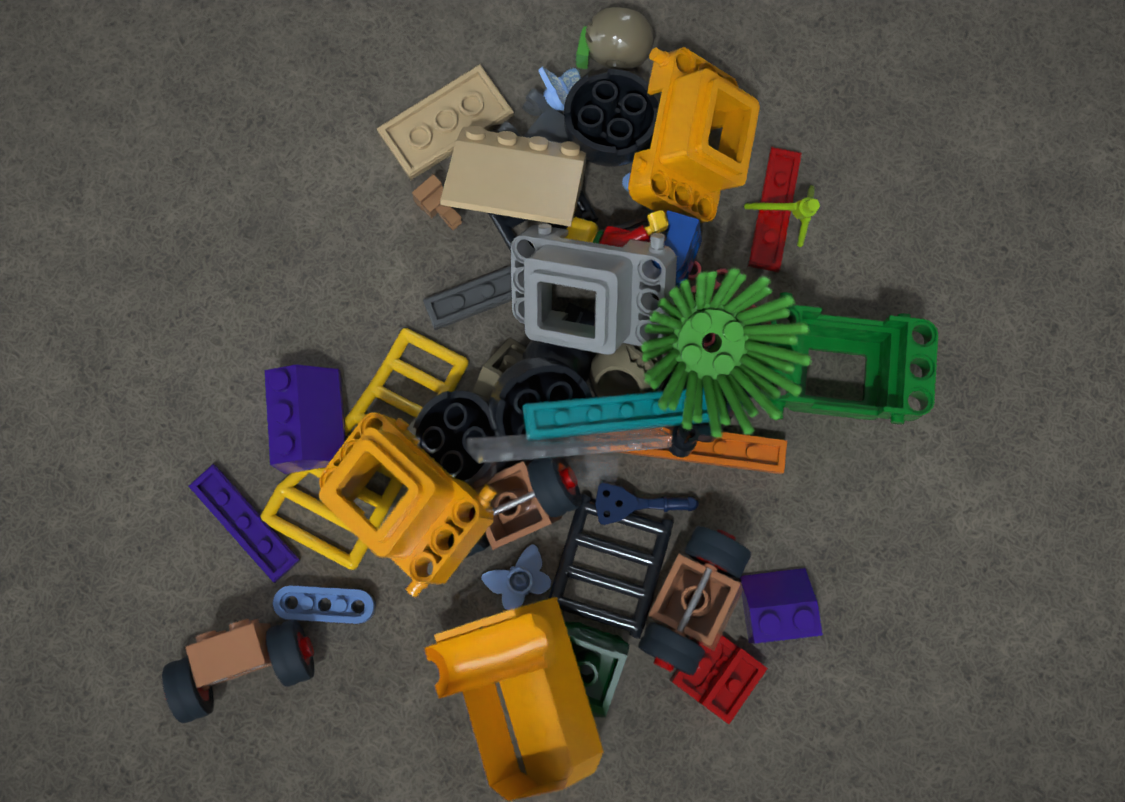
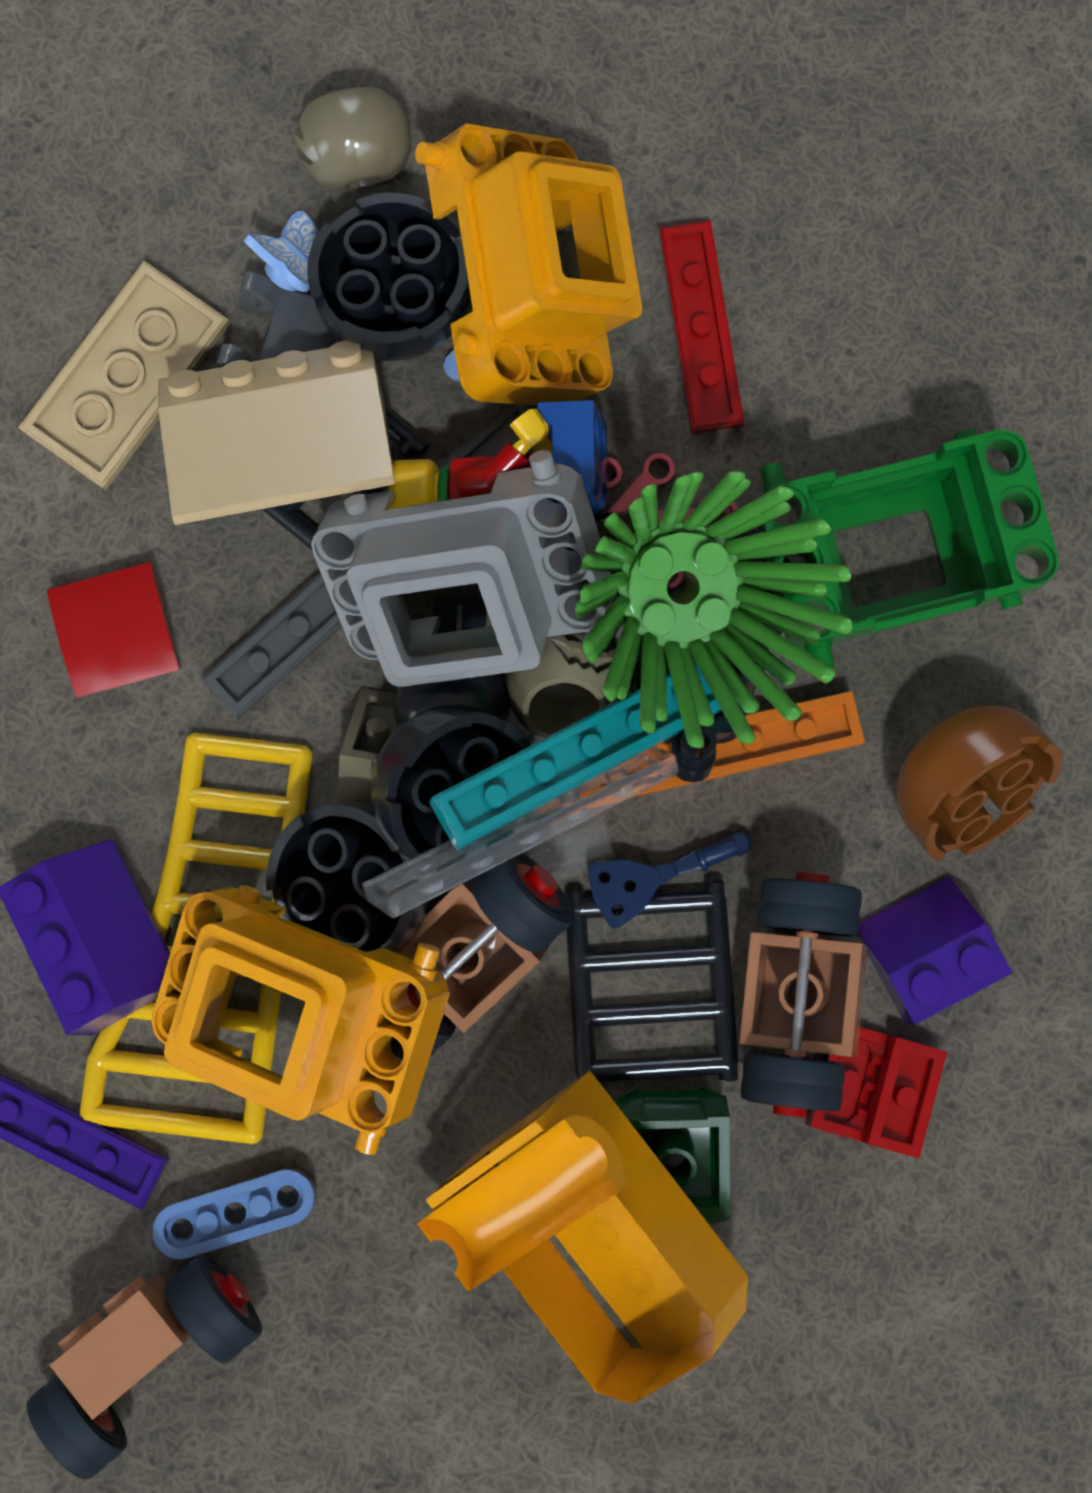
camera: 20 degrees left, 5 degrees up
(385, 255) = (113, 629): none -> red slope
(428, 198) = (149, 512): medium nougat piece -> none
(518, 580) = (520, 1059): light blue animal -> none
(583, 52) = (303, 182): bright green tile -> none
(801, 210) = (744, 317): lime plant -> none
(837, 503) = (963, 762): none -> dark orange cylinder

